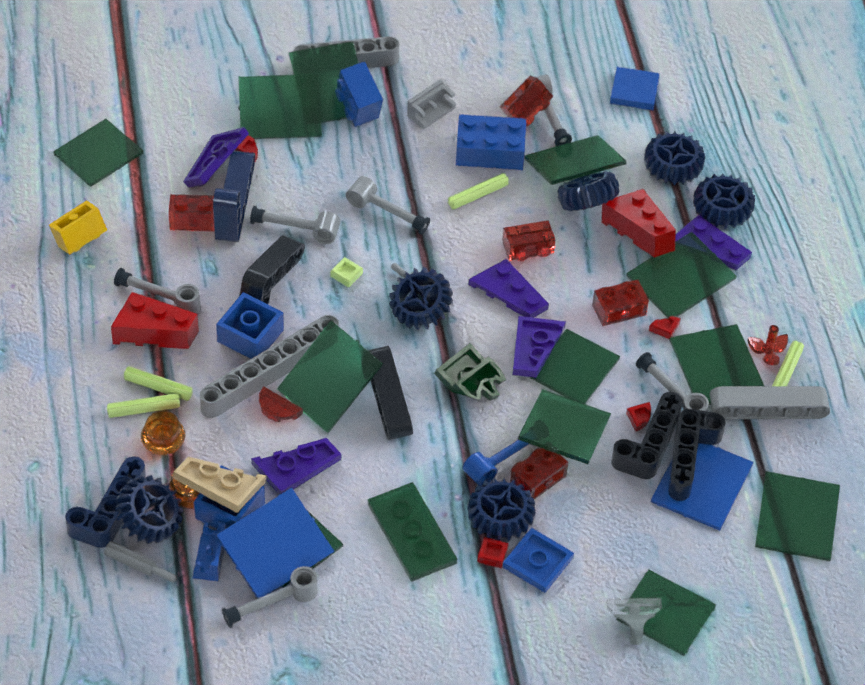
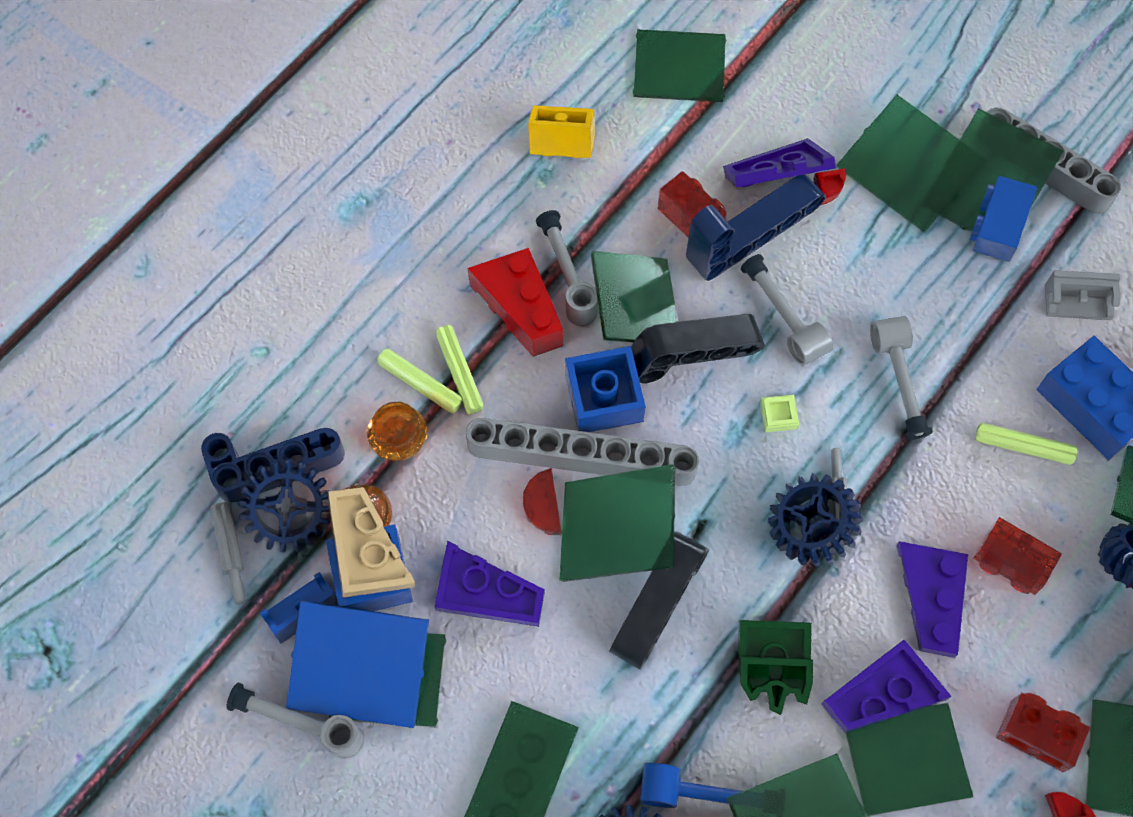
camera: 50 degrees right, 15 degrees up
(210, 274) = (632, 294): none -> clear green piece

